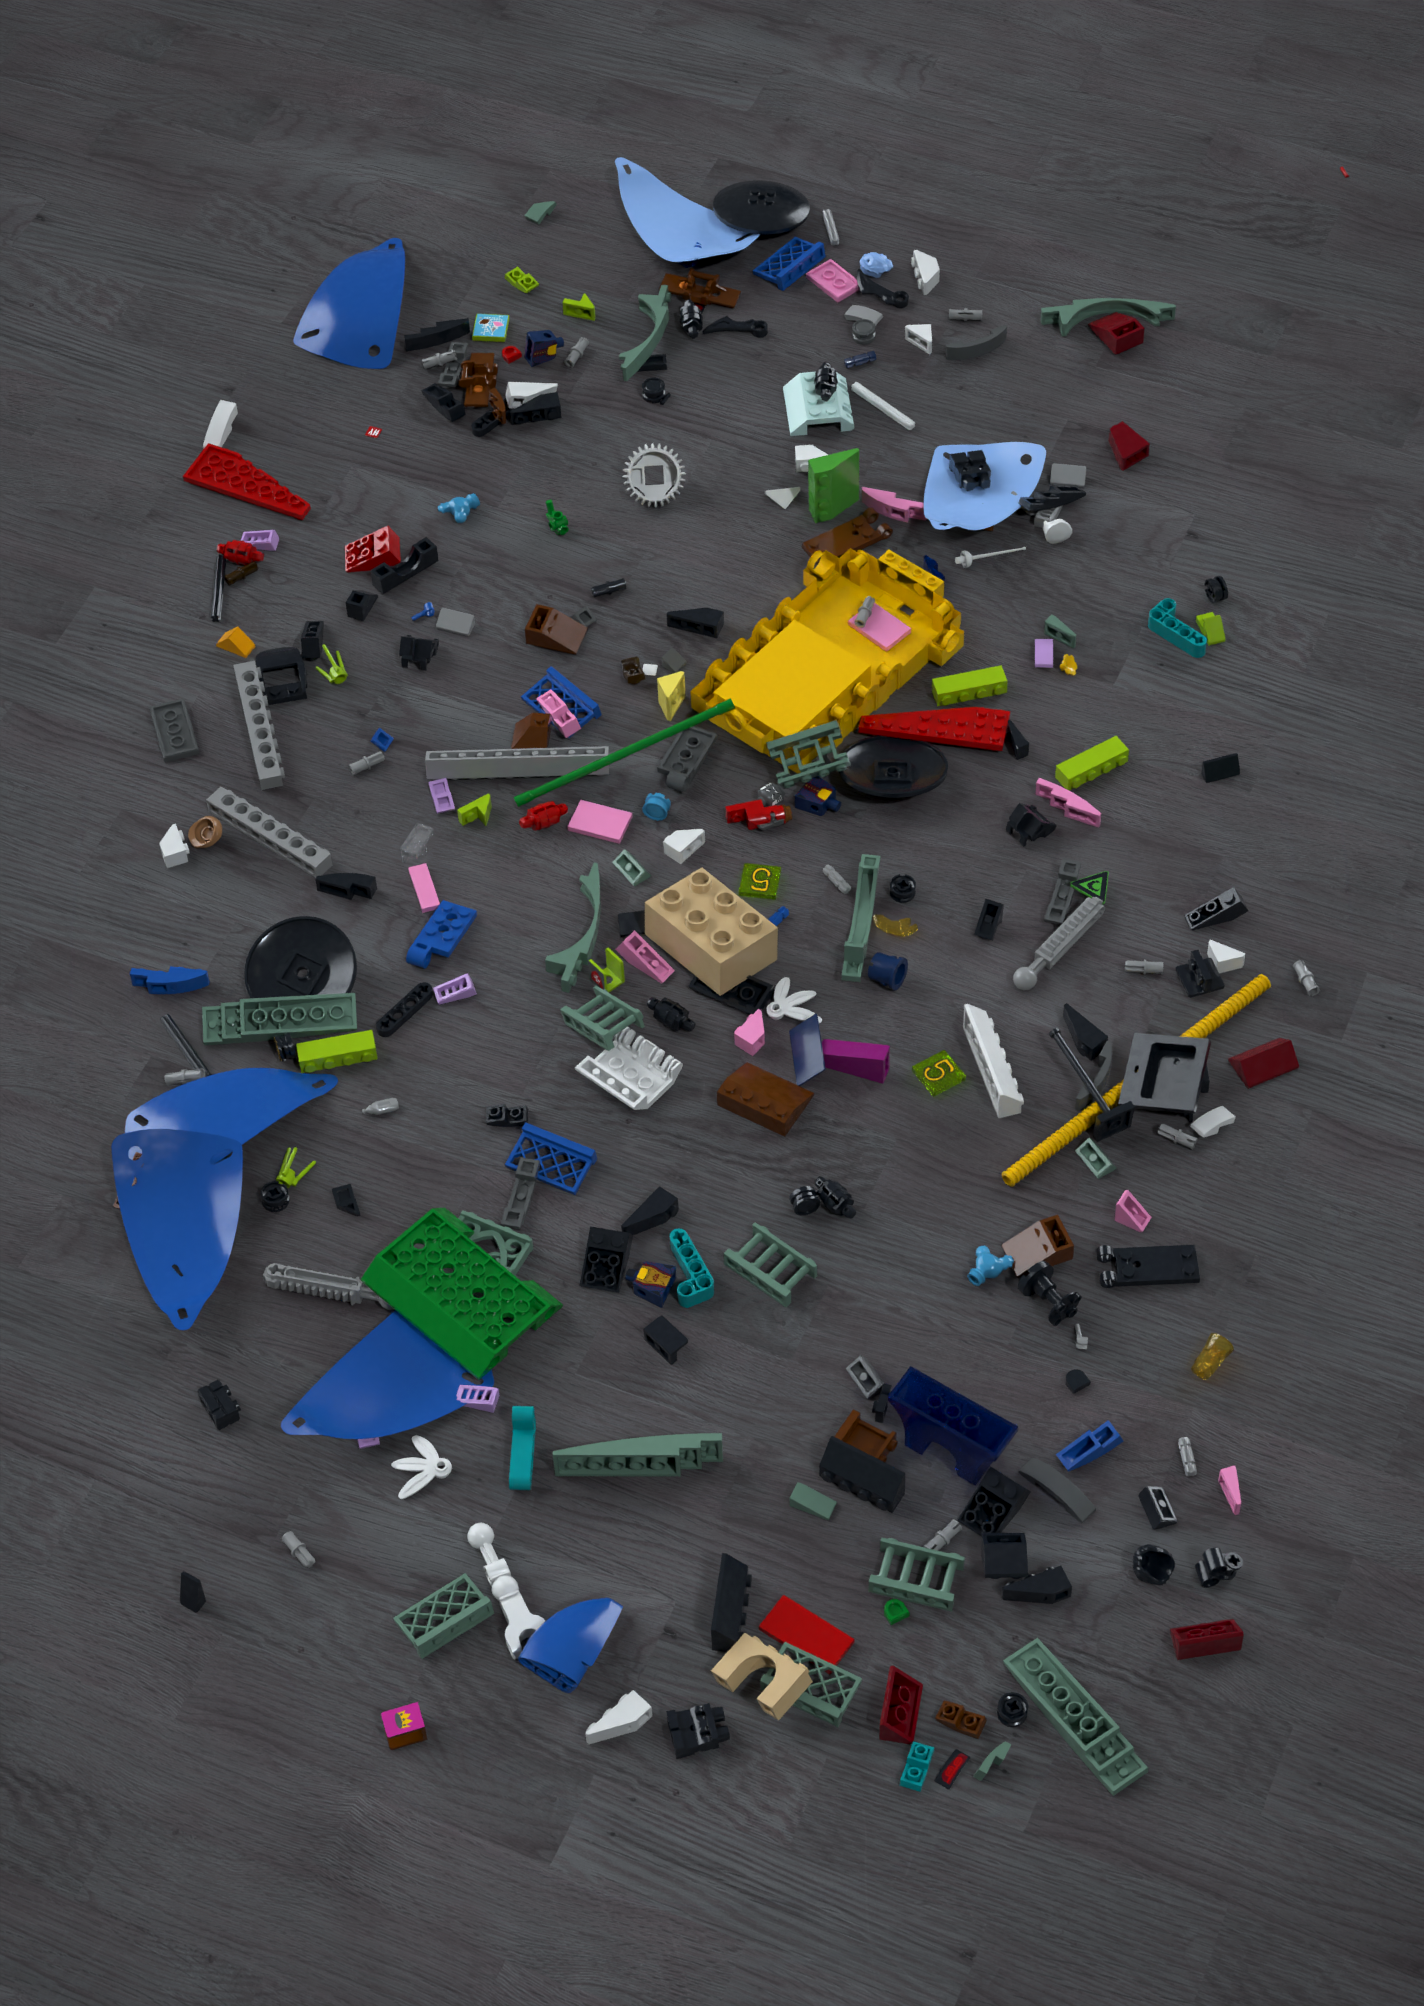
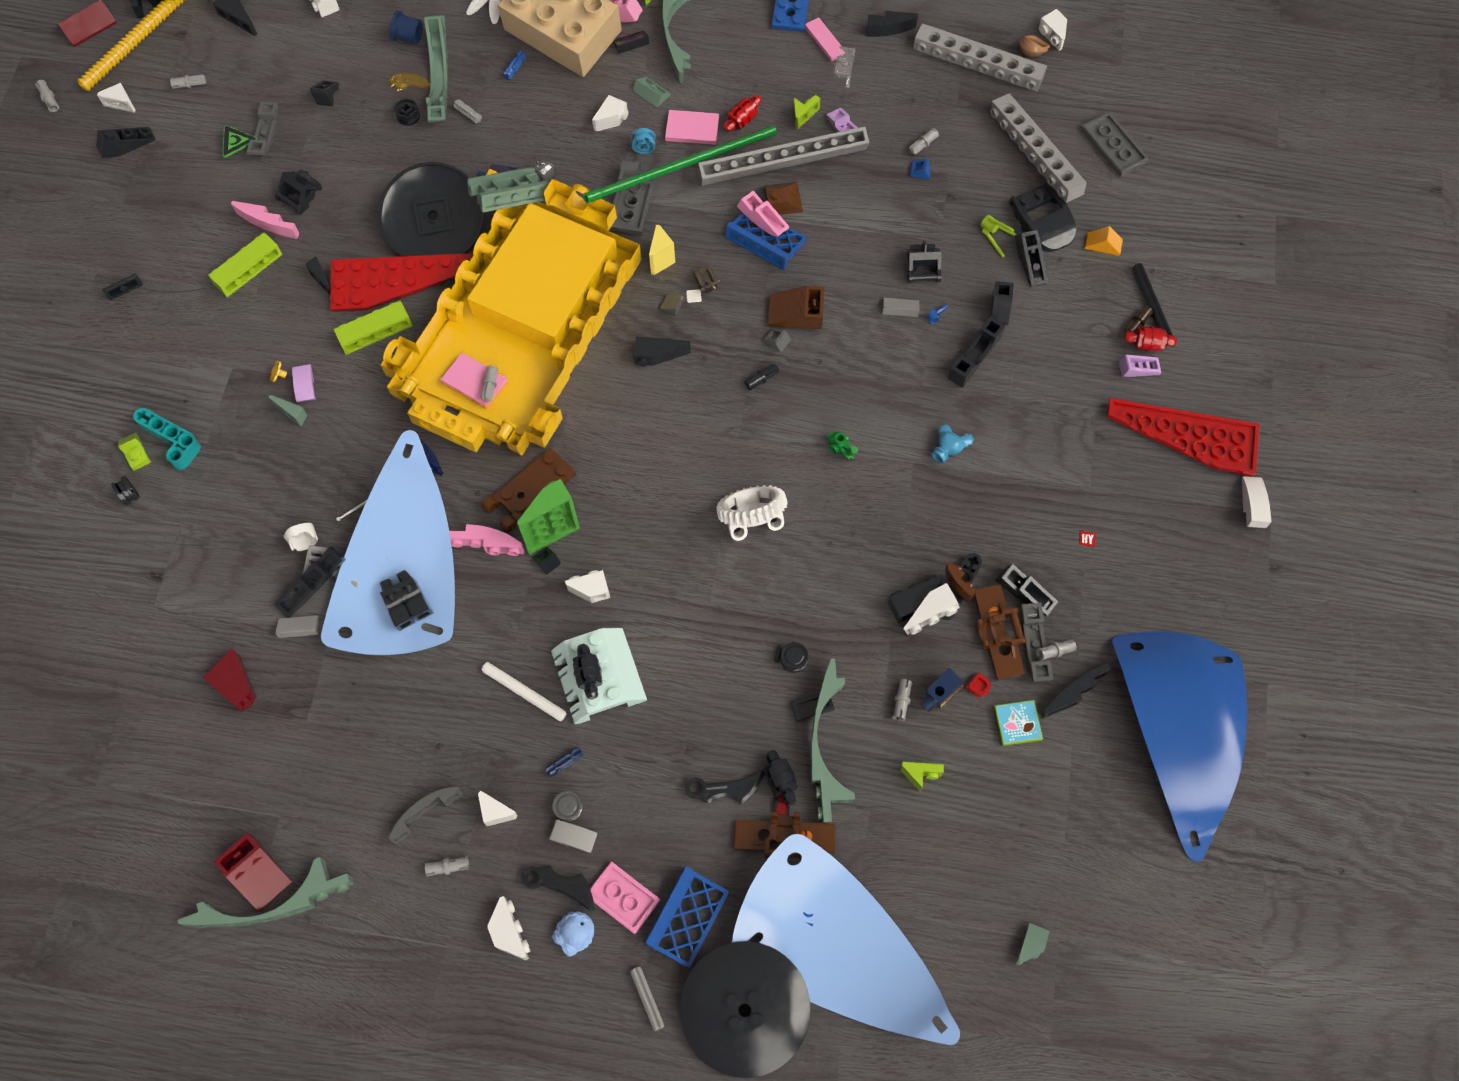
camera: 165 degrees right, 15 degrees up
(373, 550) = (1016, 369): red slope -> none
(520, 280) = (1009, 811): lime slope -> none
(757, 815) = (550, 152): red plate -> none
(760, 881) = (535, 98): clear neon green tile -> none
(783, 496) = (611, 536): white slope -> none
(1060, 942) = (260, 85): light grey gear -> none
(1199, 975) = (139, 80): black bracket -> none

